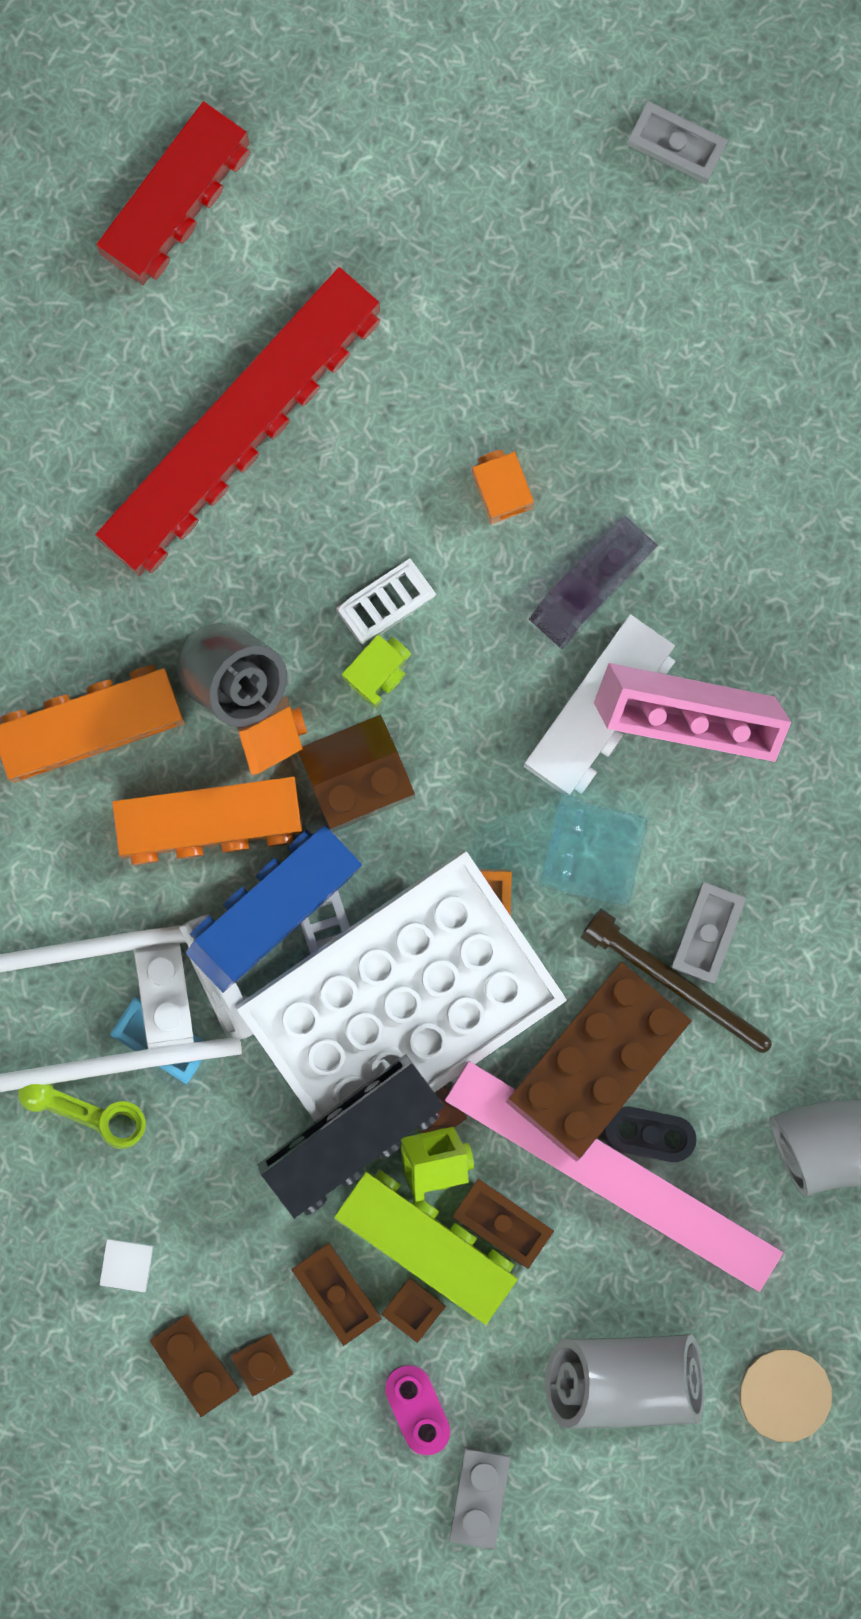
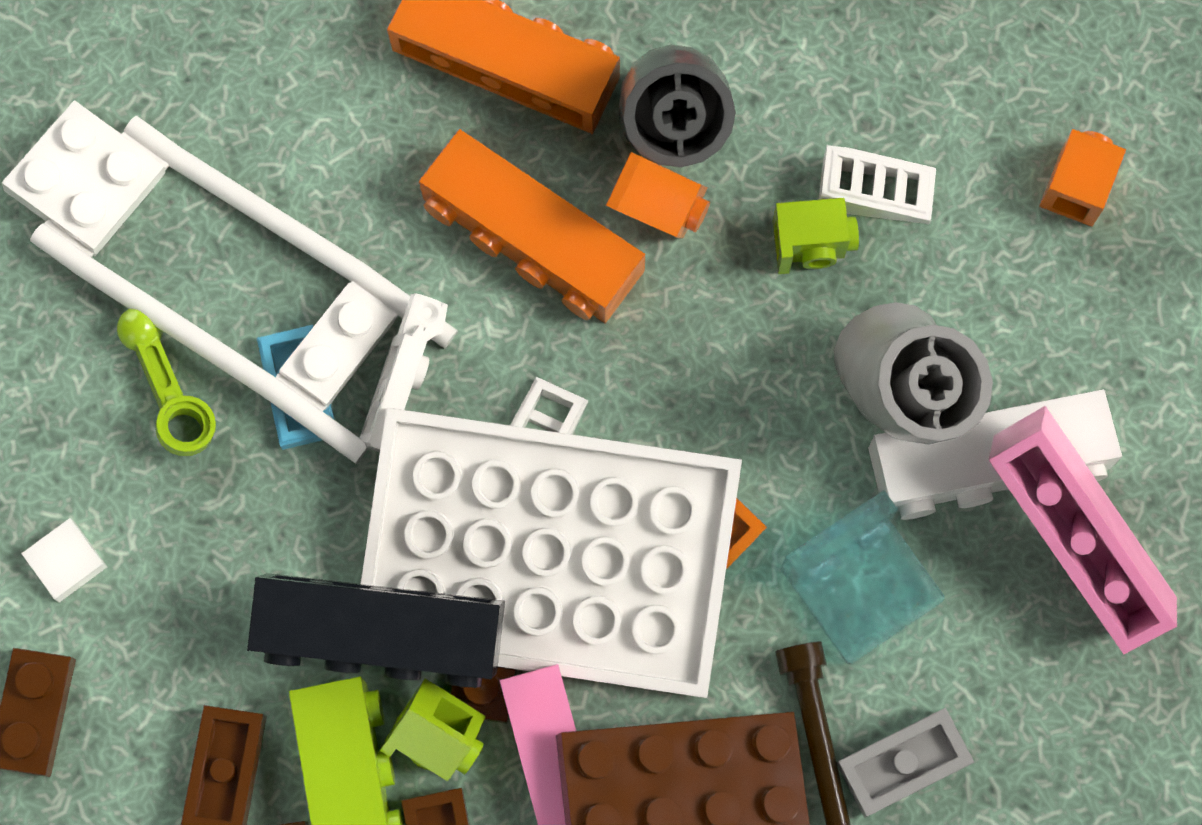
camera: 45 degrees right, 10 degrees down
(262, 1364) = (92, 772): reddish brown plate -> none
(273, 908) = (510, 349): blue brick -> none
(356, 773) = (703, 312): reddish brown slope -> none
(518, 714) = (912, 374): none -> light grey brick
(592, 582) = (1088, 334): slope -> none

